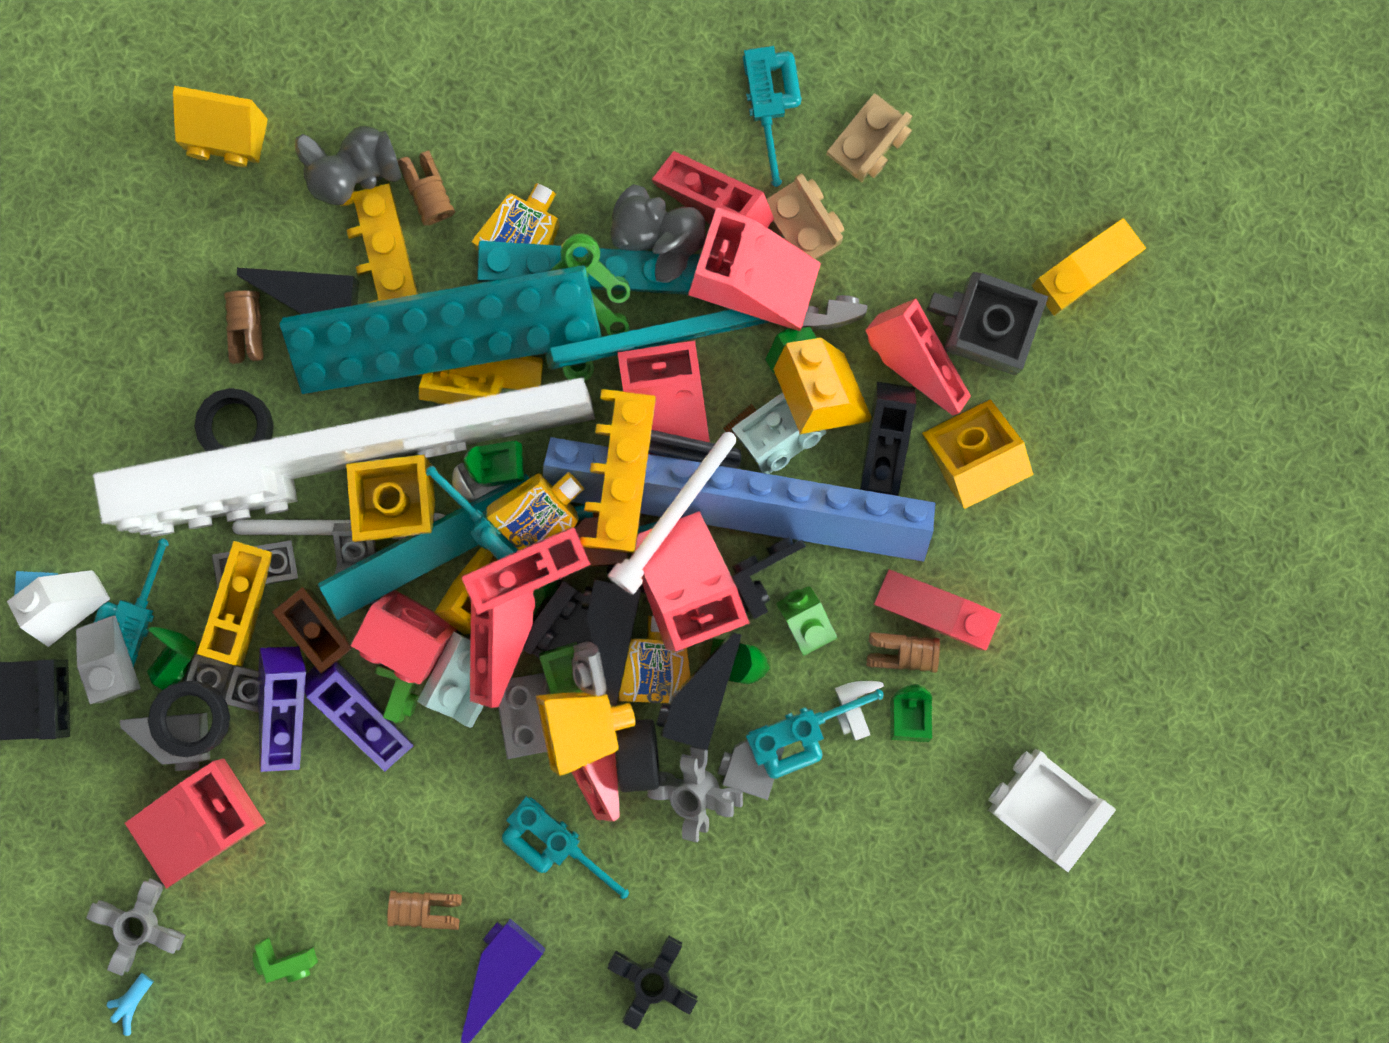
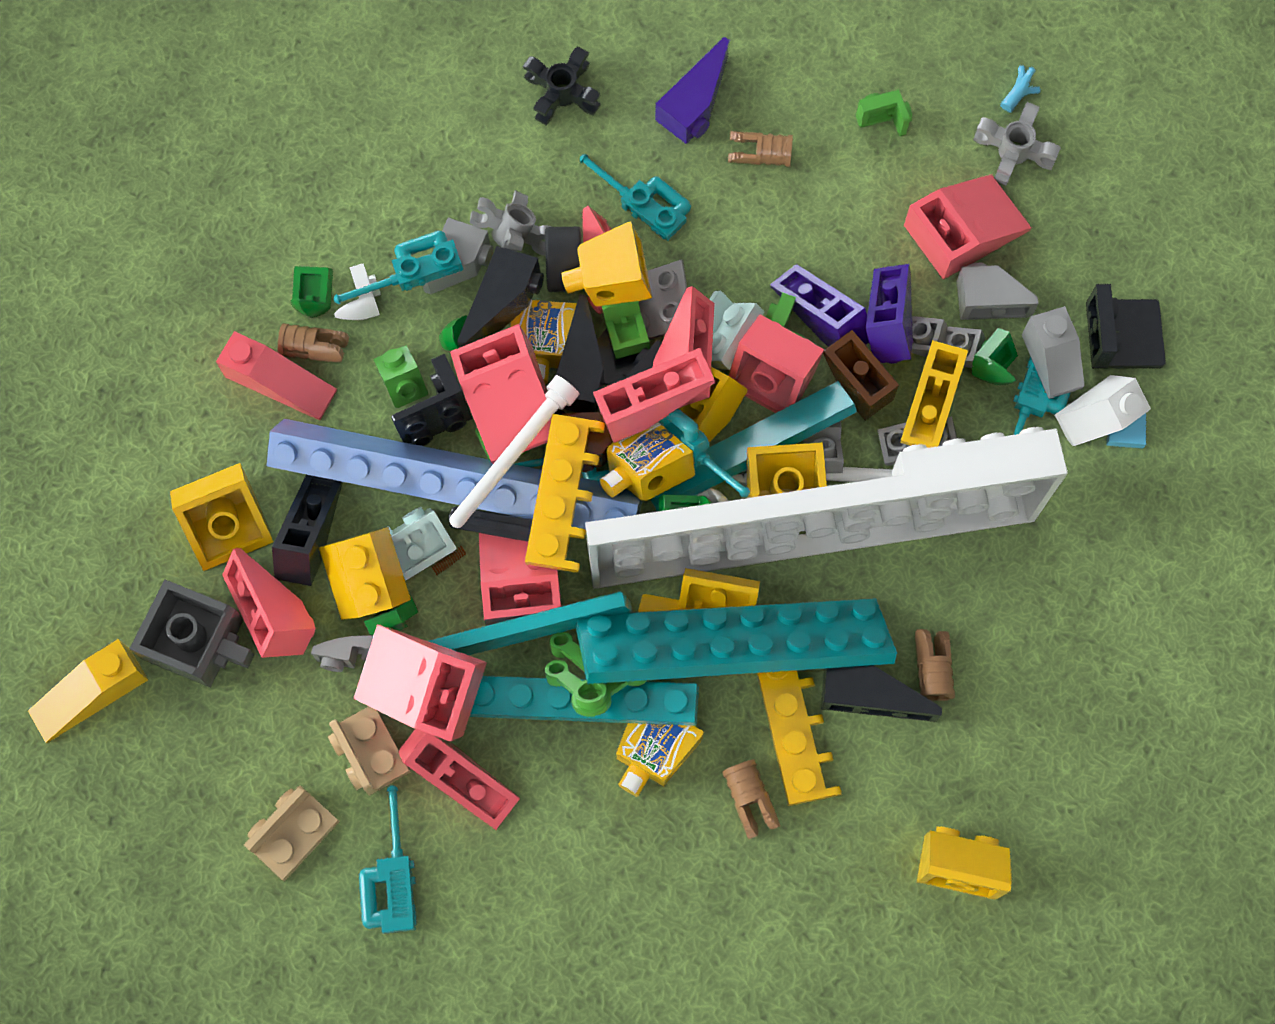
camera: 175 degrees left, 15 degrees down
(158, 714) = (976, 270): black tyre -> none
(224, 397) = (958, 546): black tyre -> none
(362, 159) = (817, 823): dark grey animal -> none
(588, 669) = (602, 323): light grey slope -> none
(645, 225) = (524, 740): dark grey animal -> none
(1050, 809) = (194, 208): white panel -> none

